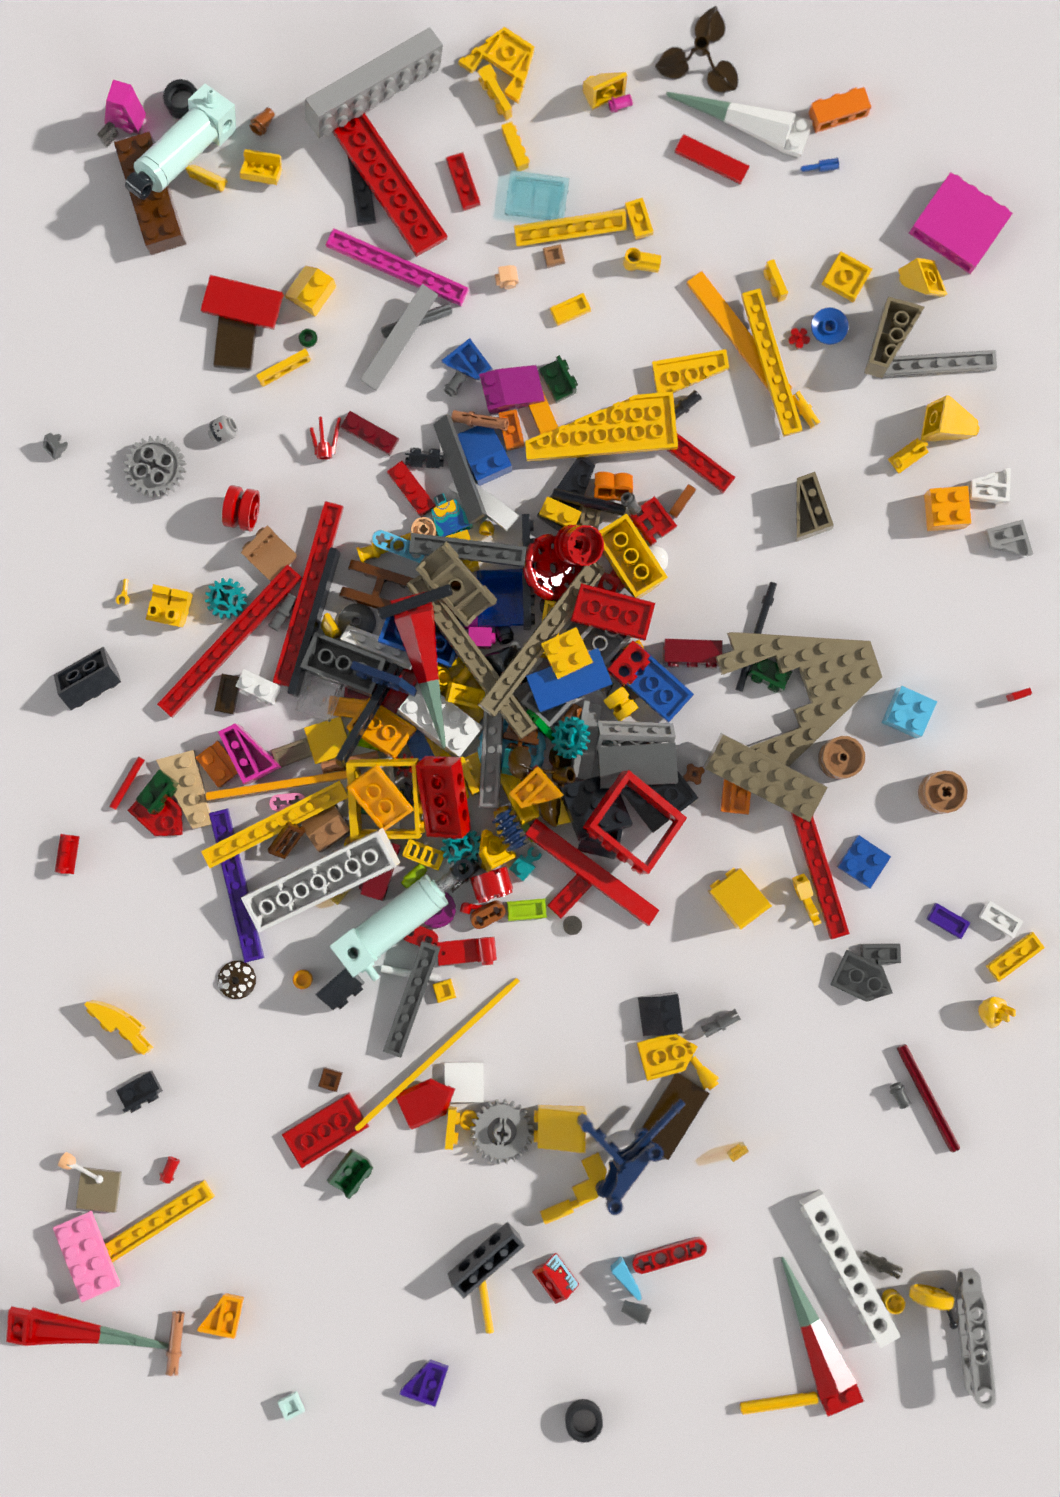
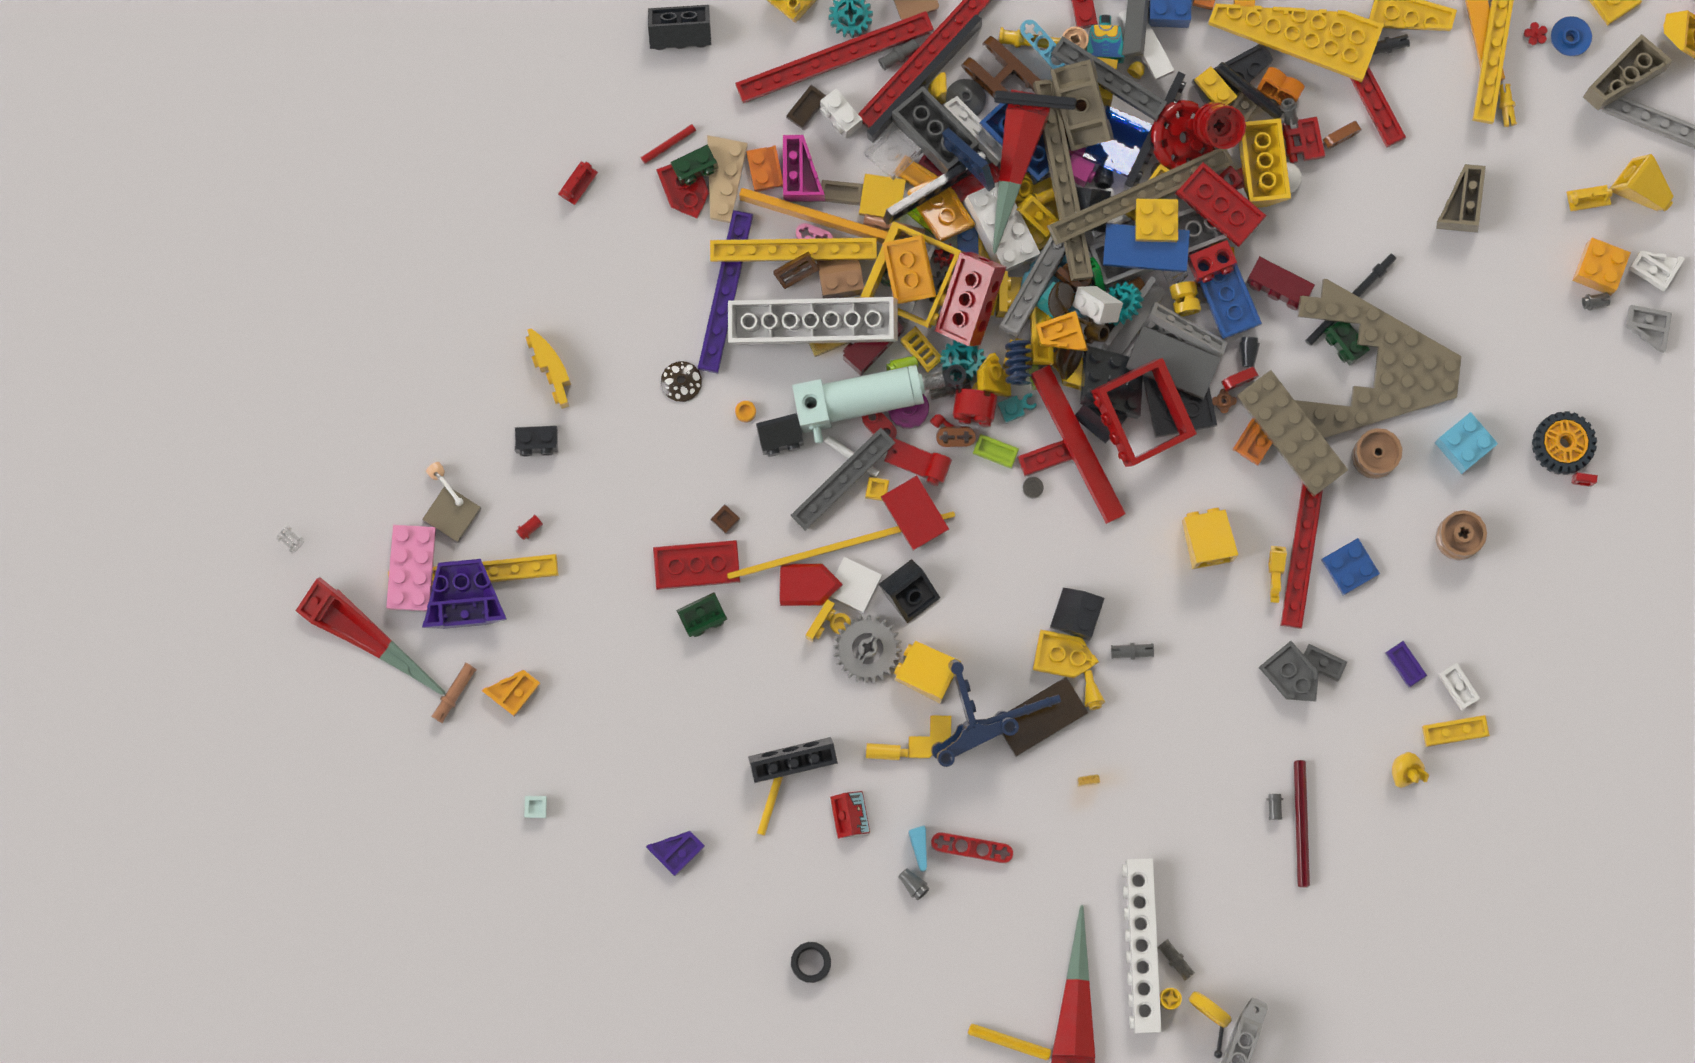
camera: 25 degrees right, 5 degrees down
(140, 1261) = (462, 597): none -> dark purple wedge
(485, 997) = (914, 513): none -> red tile
(512, 1065) = (909, 590): none -> black slope
(552, 750) = (1097, 304): none -> white brick
(694, 721) = (1249, 349): none -> black cone
(698, 749) = (1239, 378): none -> red beam
(952, 542) = (1590, 302): none -> dark grey pin
(1002, 671) = (1551, 452): none -> wheel

